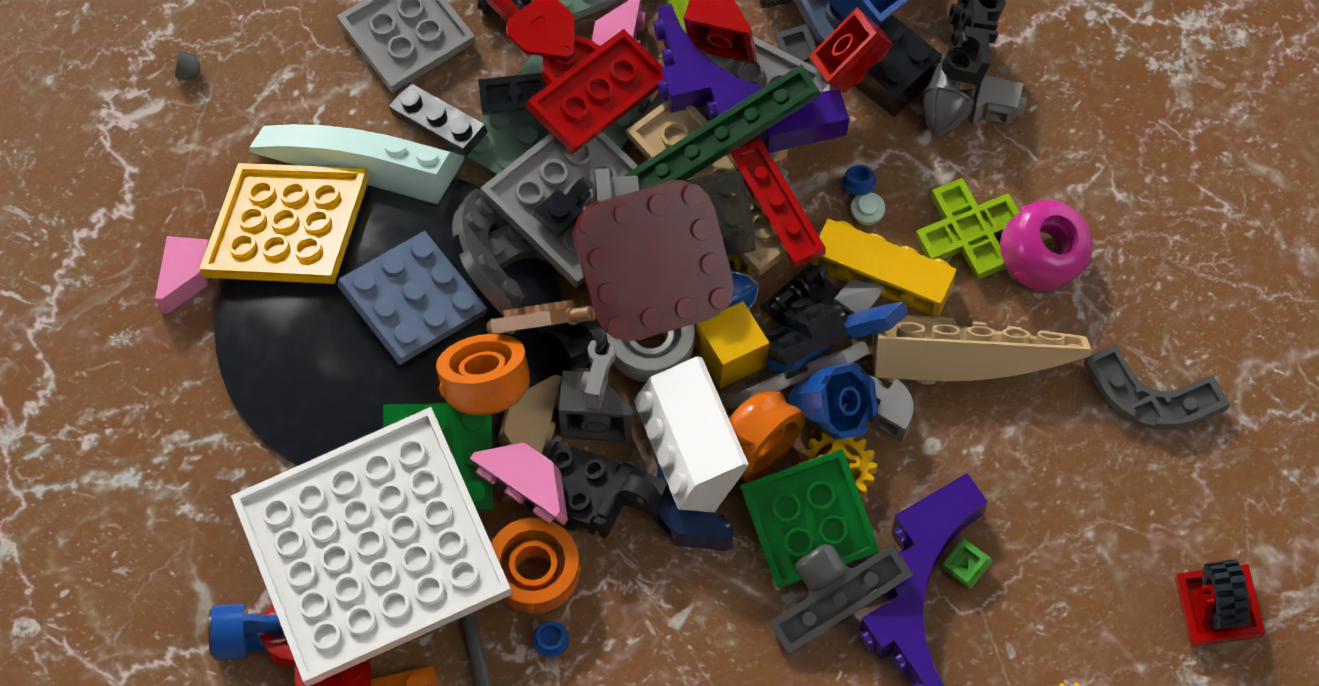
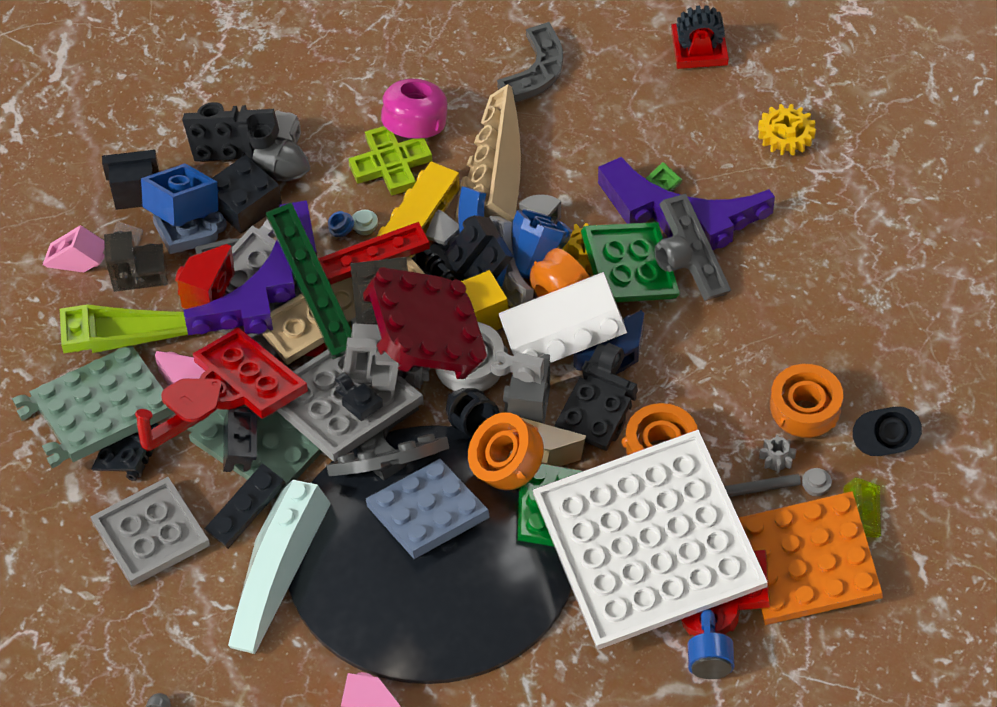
camera: 85 degrees left, 10 degrees down
(285, 223) = (339, 612): yellow plate -> none
(527, 477) = (596, 429): bright pink slope -> none
(540, 316) = (460, 412): medium nougat plate -> none
(550, 639) = (716, 439): blue plate -> none
(851, 51) = (247, 193): red slope -> none

